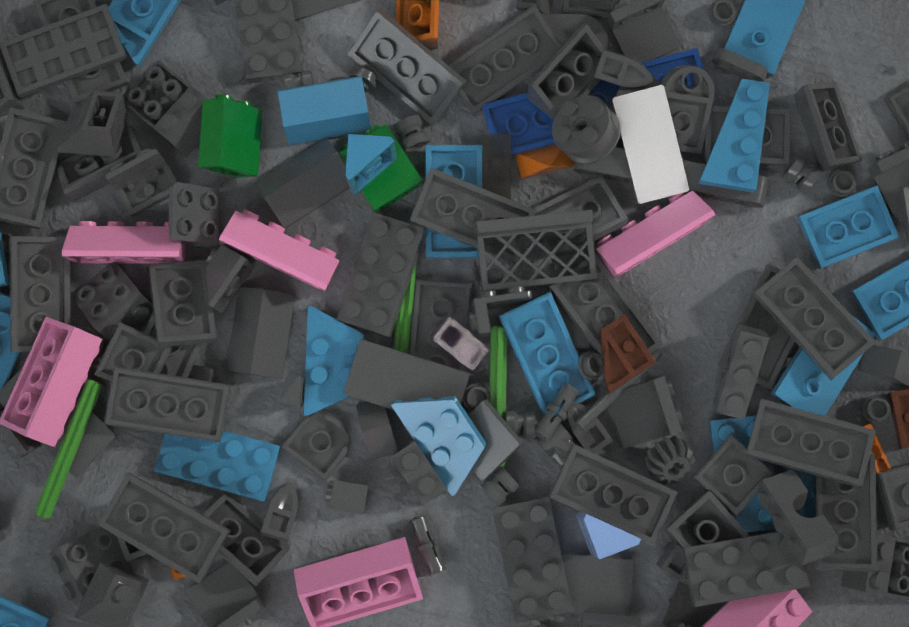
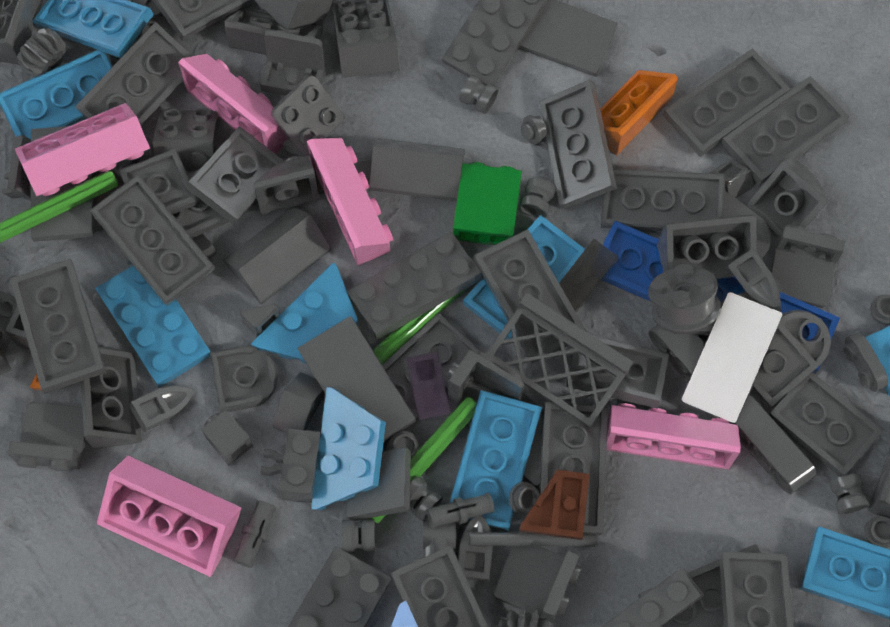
camera: 45 degrees right, 15 degrees down
(230, 137) = (388, 85): green brick -> none
(324, 110) = (480, 125): dark azure slope -> none
(367, 159) = (478, 173): dark azure slope -> none
(542, 161) = (628, 306): orange slope -> none
(738, 146) = (810, 420): dark azure wing -> none

